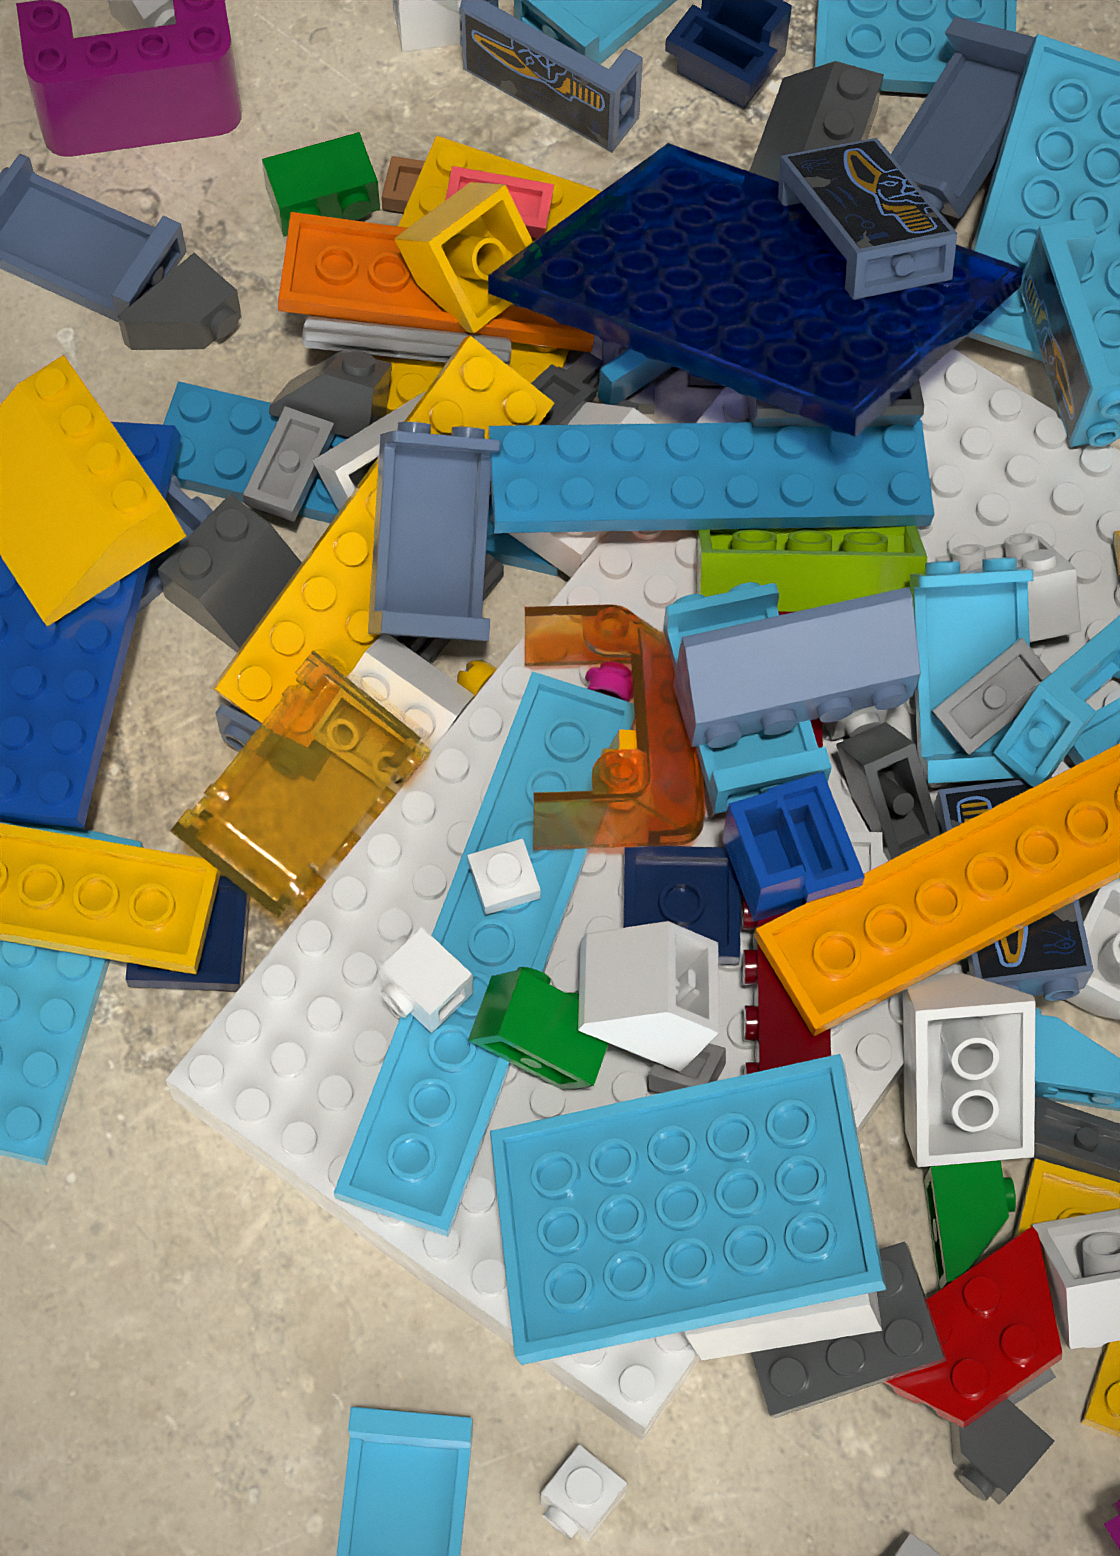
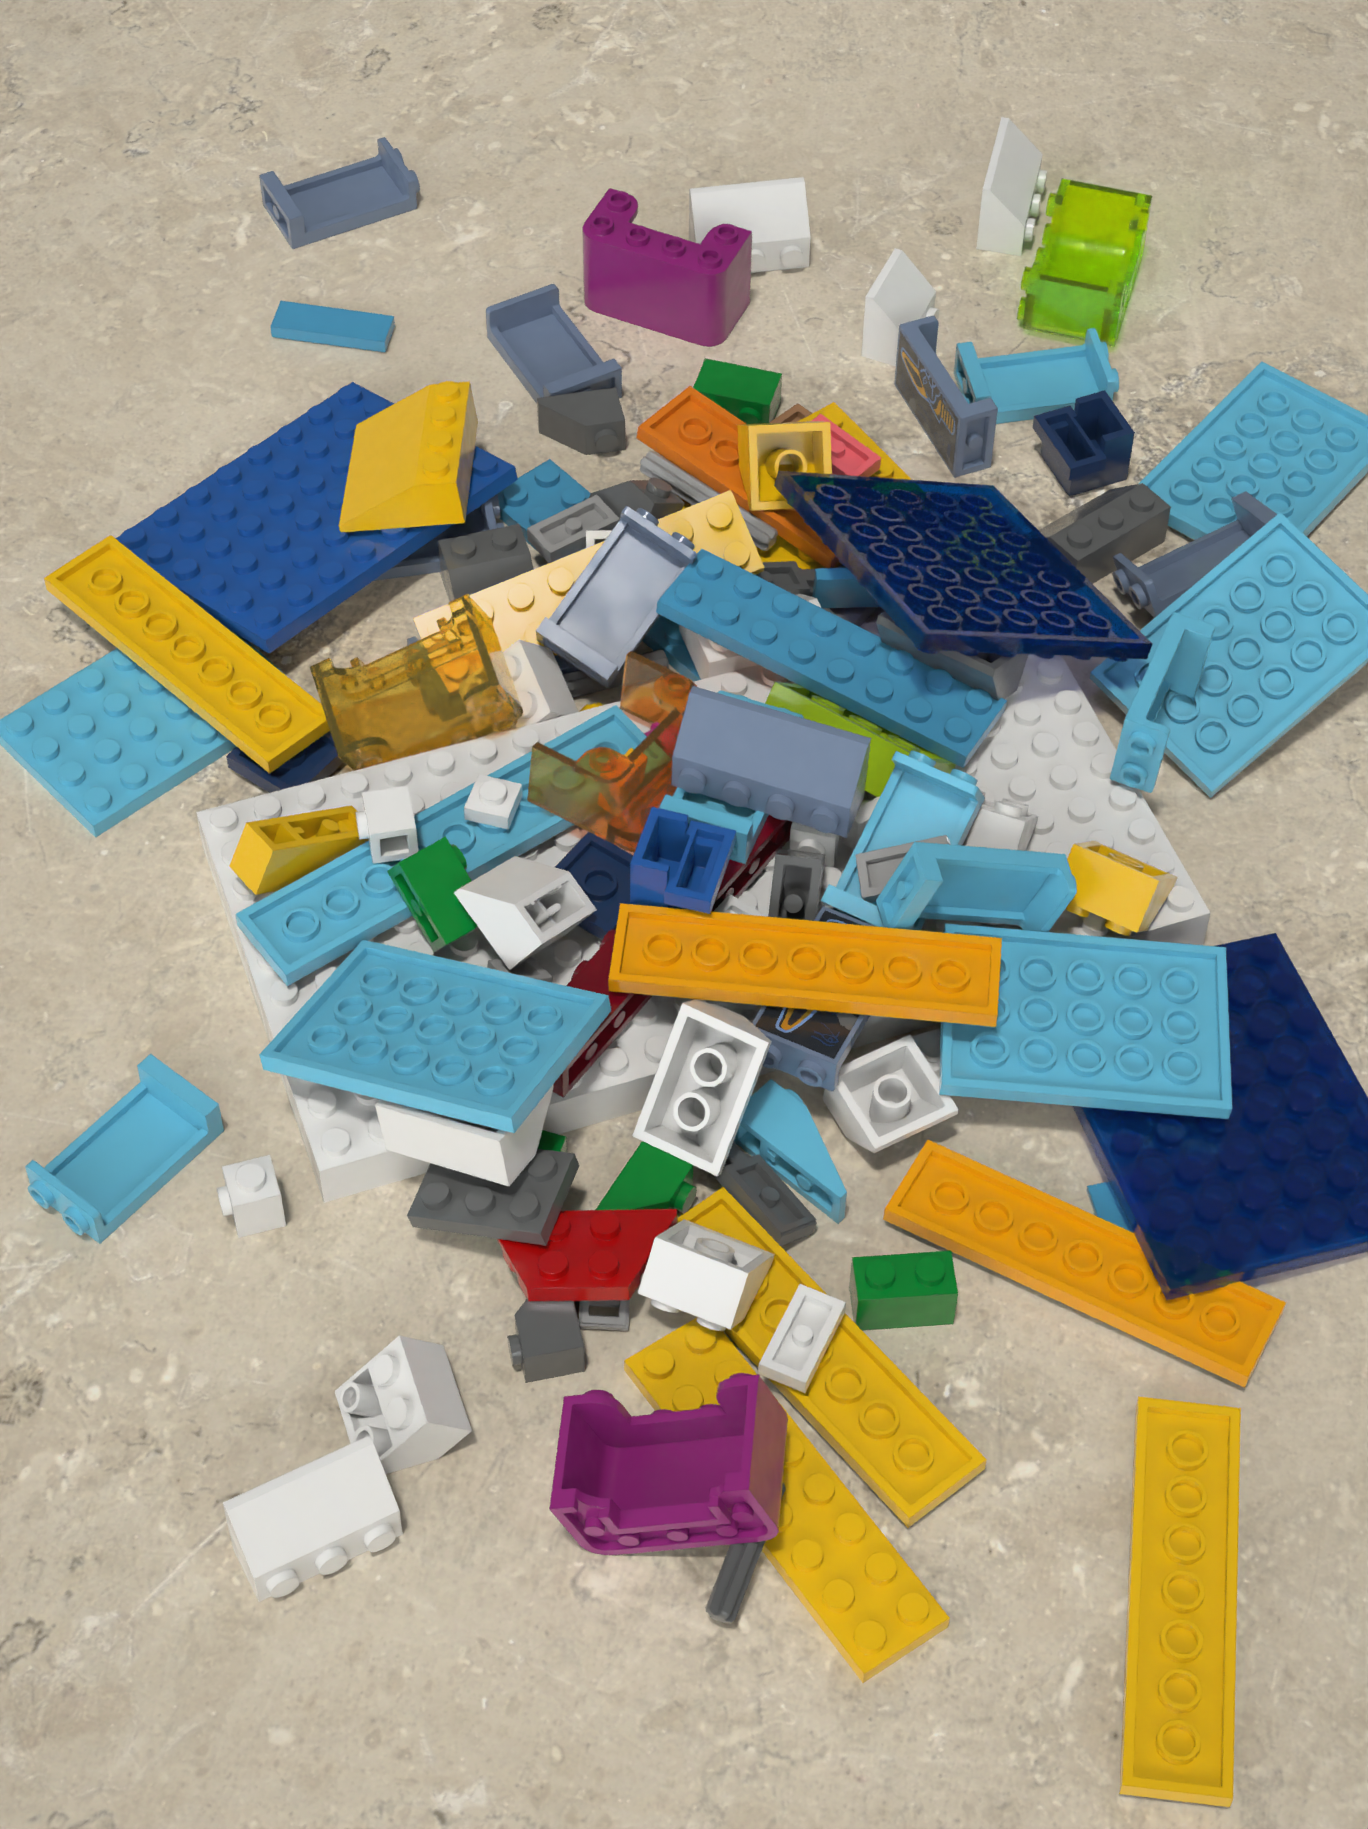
camera: 35 degrees right, 15 degrees down
(333, 1063) = (291, 846): none -> yellow slope
(871, 215) = (1065, 562): panel -> none

